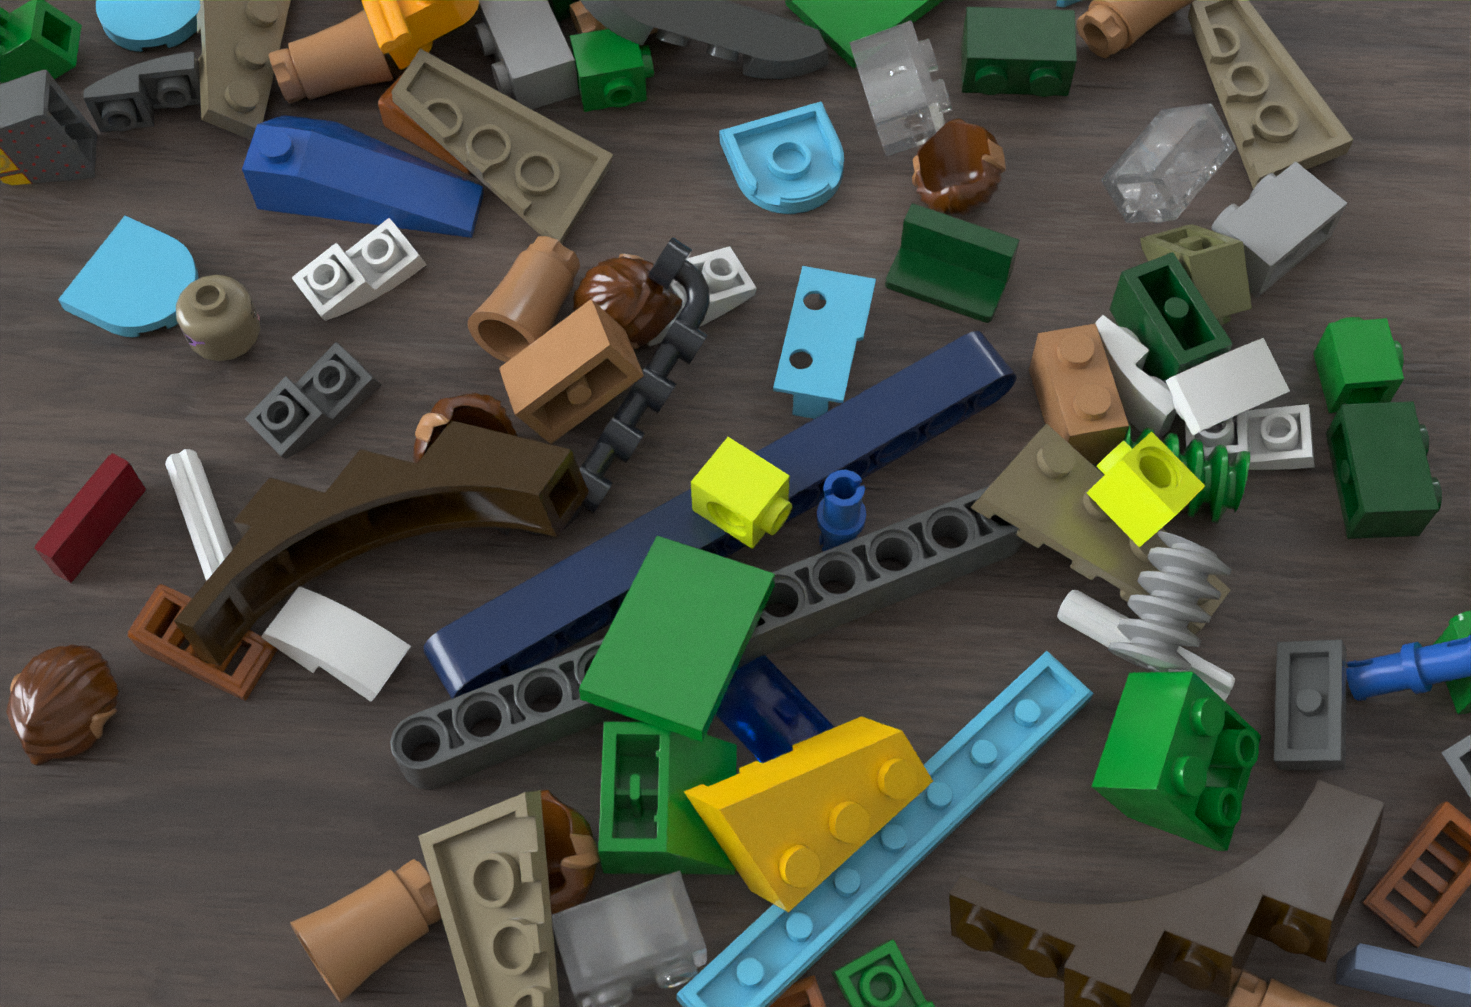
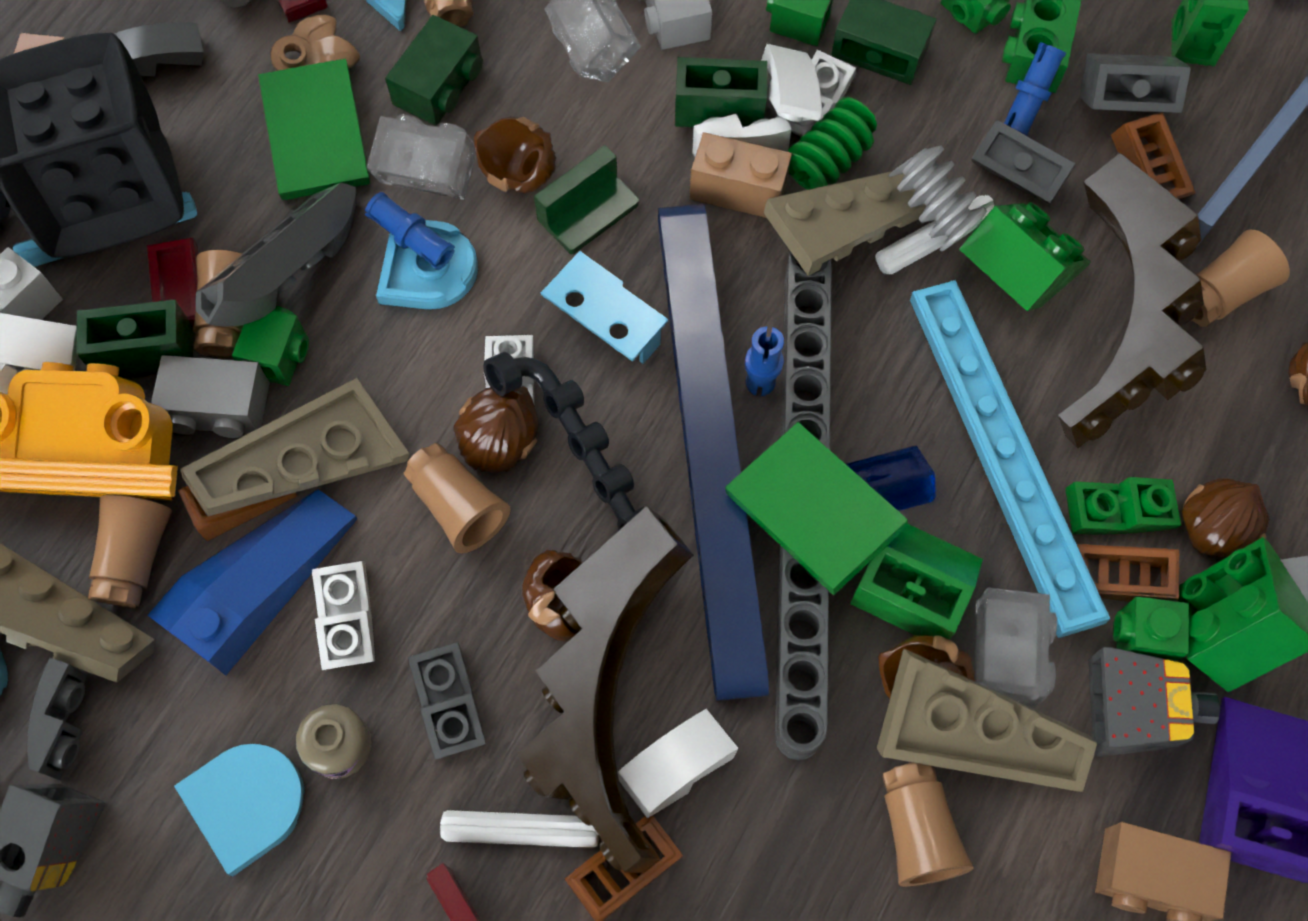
camera: 65 degrees left, 5 degrees up
(570, 372) = (546, 489): medium nougat brick -> none
(741, 493) = (723, 413): neon yellow brick -> none
(803, 117) = (409, 230): none -> blue pin
(811, 808) = (973, 482): yellow wedge -> none
(1143, 487) = (853, 164): neon yellow brick -> none
(1212, 263) = (657, 58): olive slope -> none

